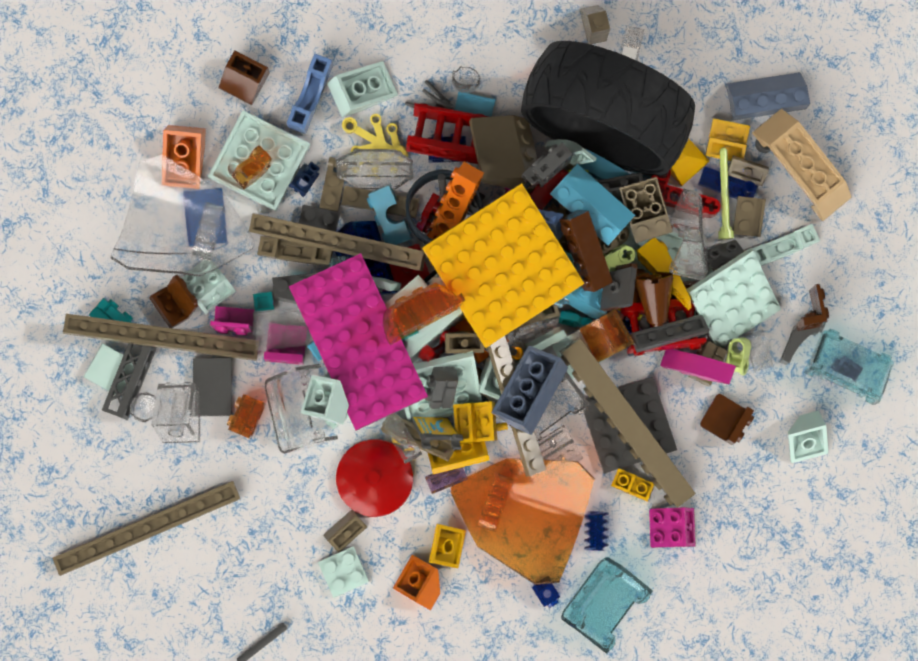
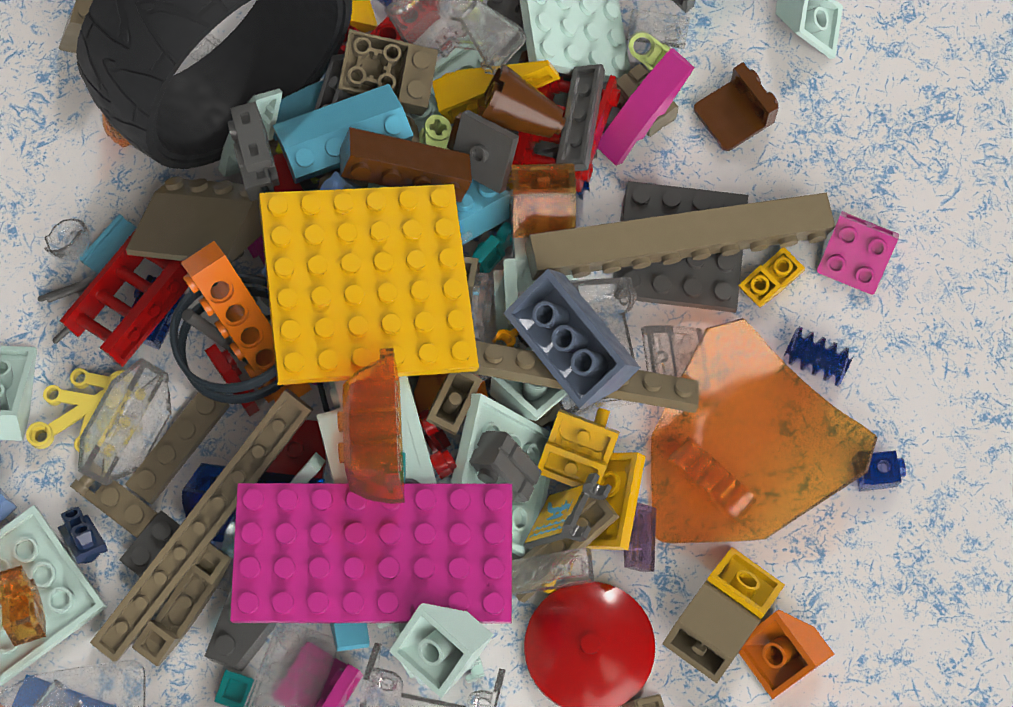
camera: 55 degrees left, 10 degrees down
(394, 231) = (176, 436): medium azure arch -> none
(410, 538) = (711, 631): none -> dark tan slope
(604, 602) = (927, 394): clear light blue windscreen -> none

